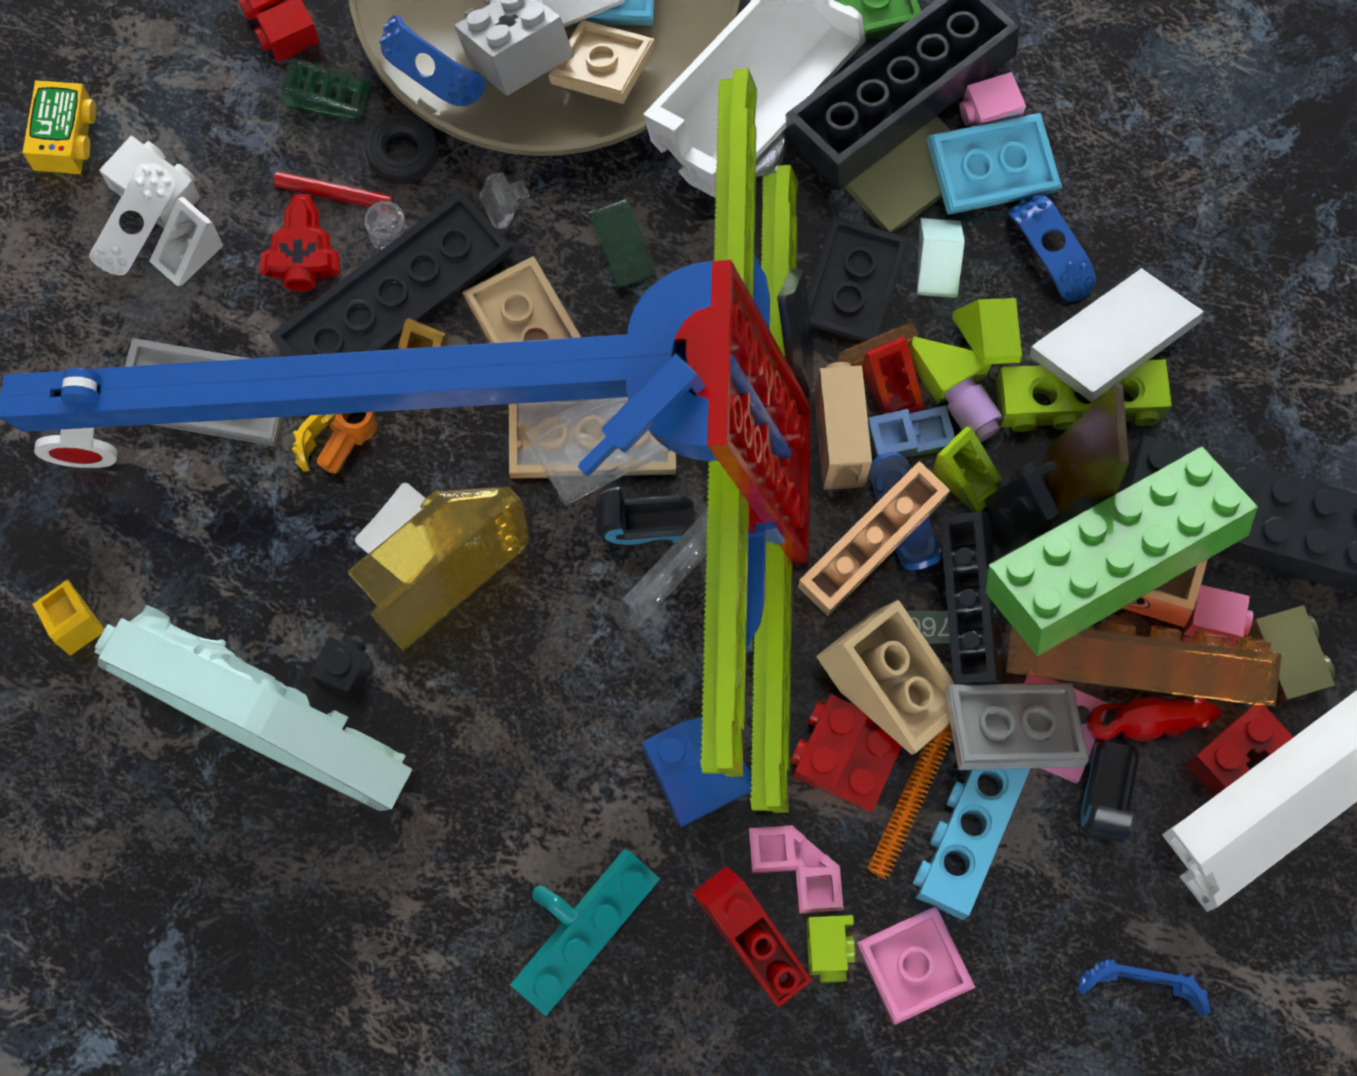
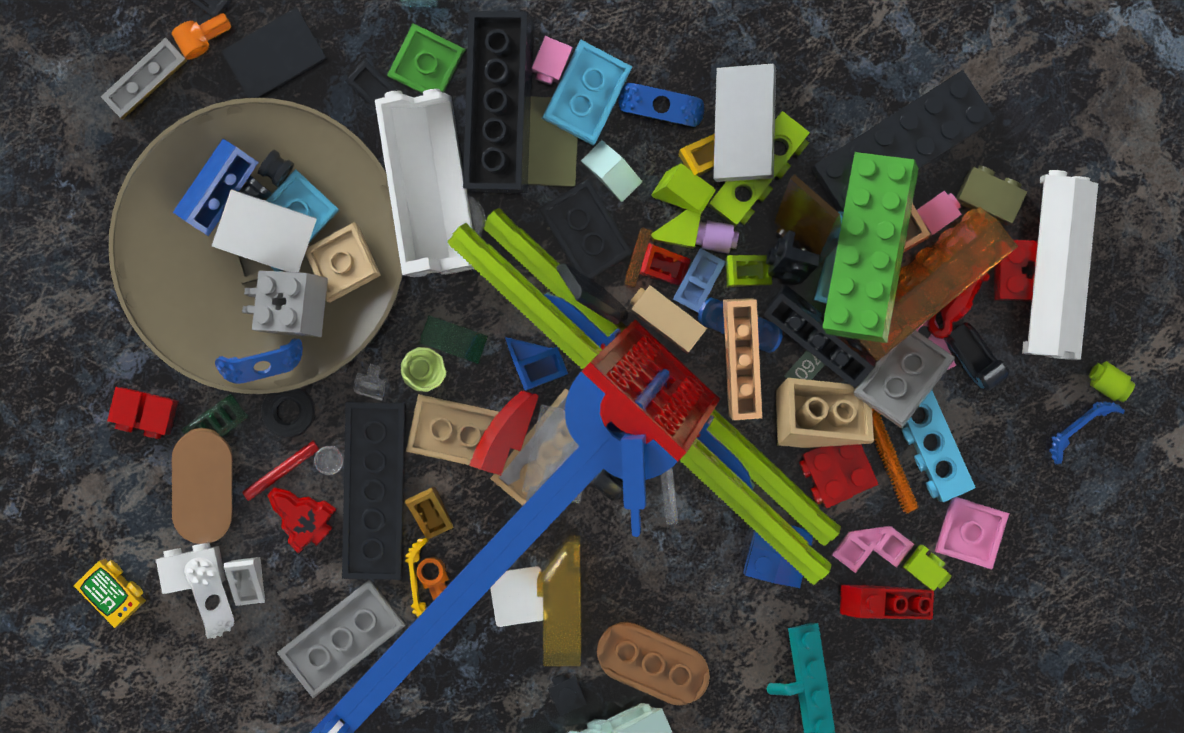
camera: 45 degrees left, 15 degrees up
(249, 122) = (202, 486): none -> medium nougat tile
(456, 739) = (653, 663): none -> medium nougat tile
(563, 236) = (423, 369): none -> yellowish green hair
(1037, 318) = (699, 155): none -> yellow slope
(1225, 971) = (1111, 382): none -> lime brick

